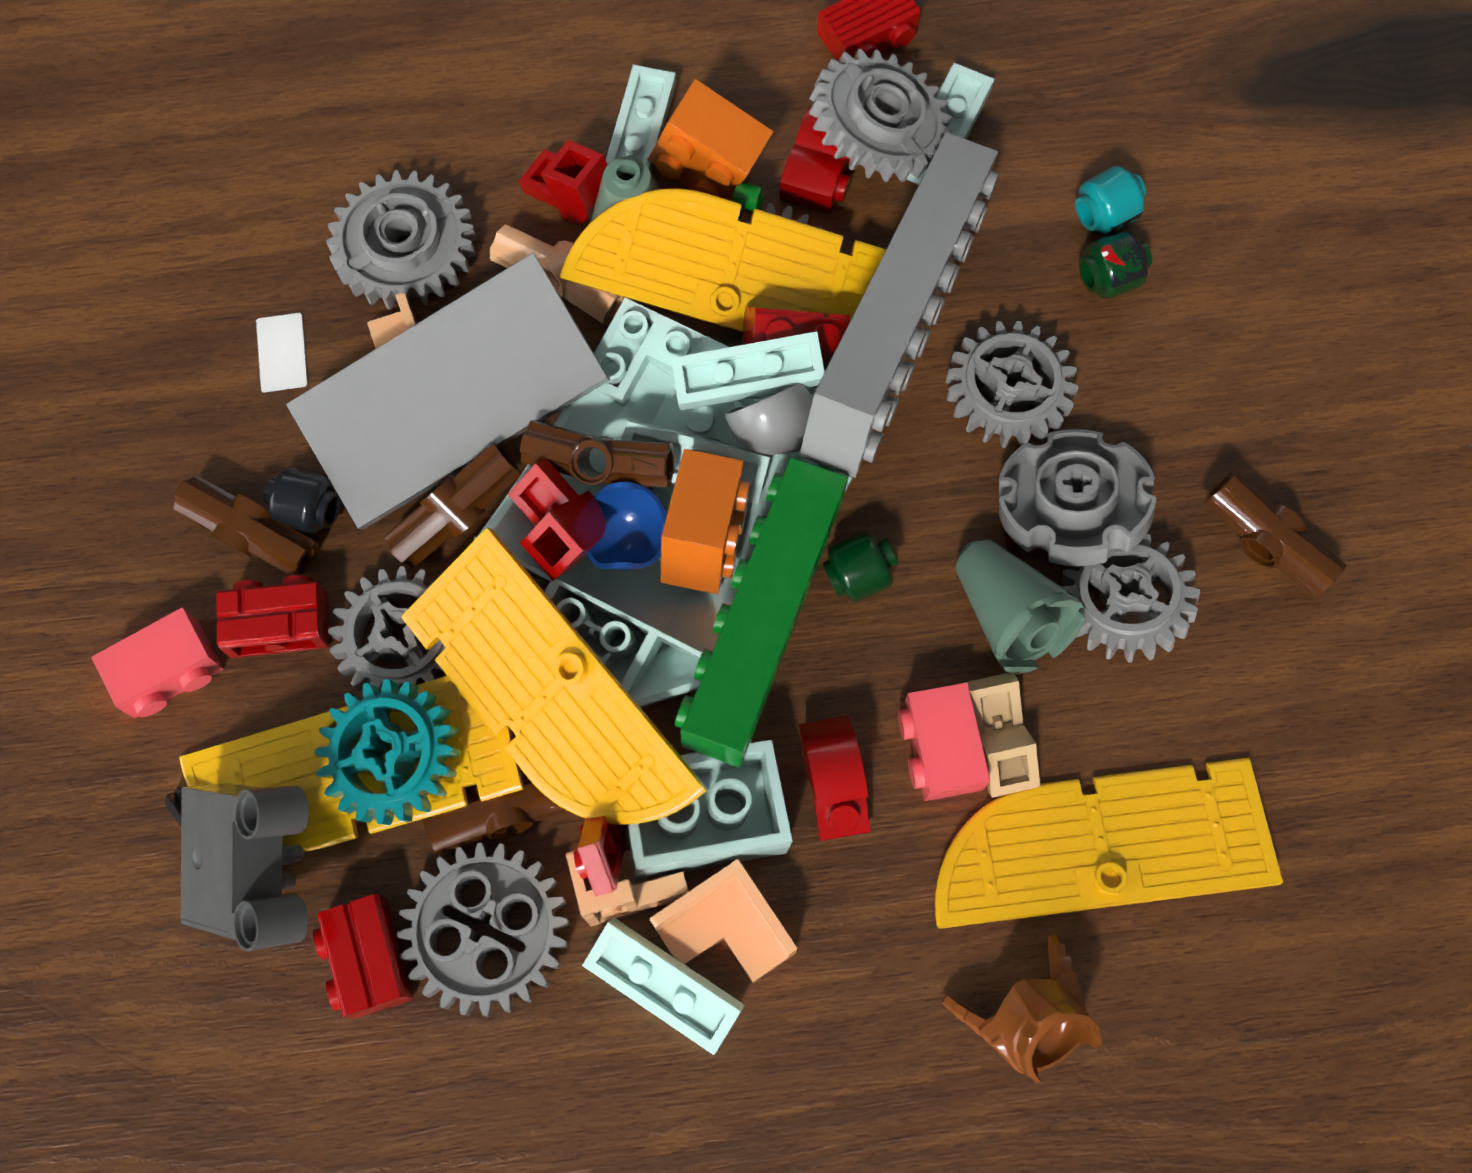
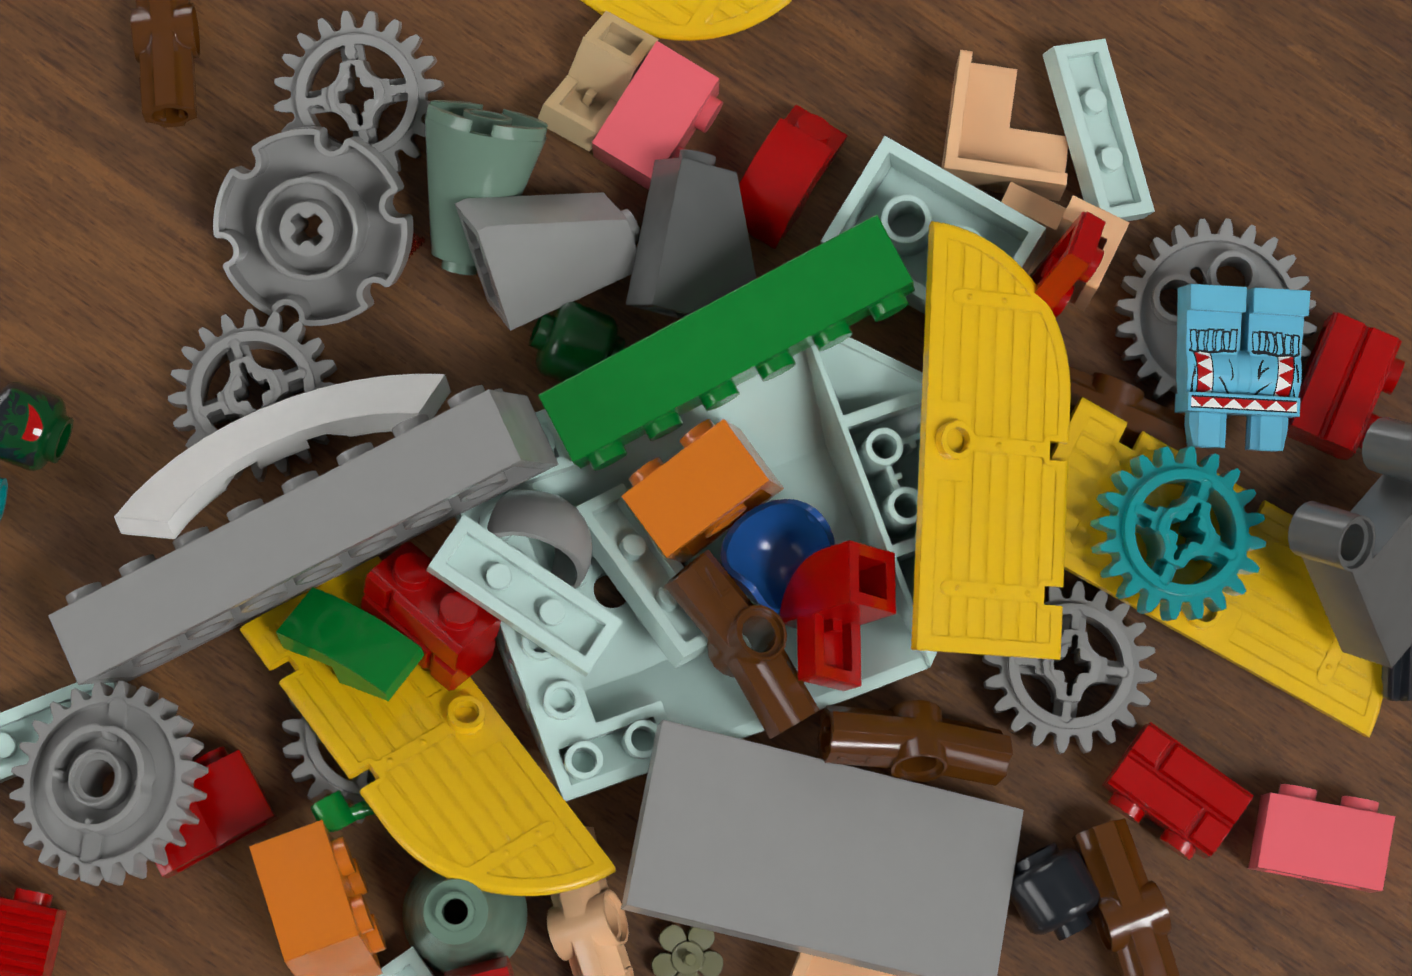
camera: 140 degrees left, 10 degrees up
(426, 882) = (1239, 360): none -> medium azure hips
(821, 279) = (352, 641): none -> green slope
(847, 672) = (690, 237): none -> dark grey slope
(931, 595) = (546, 249): none -> light grey slope
(979, 353) = (268, 435): none -> white tile

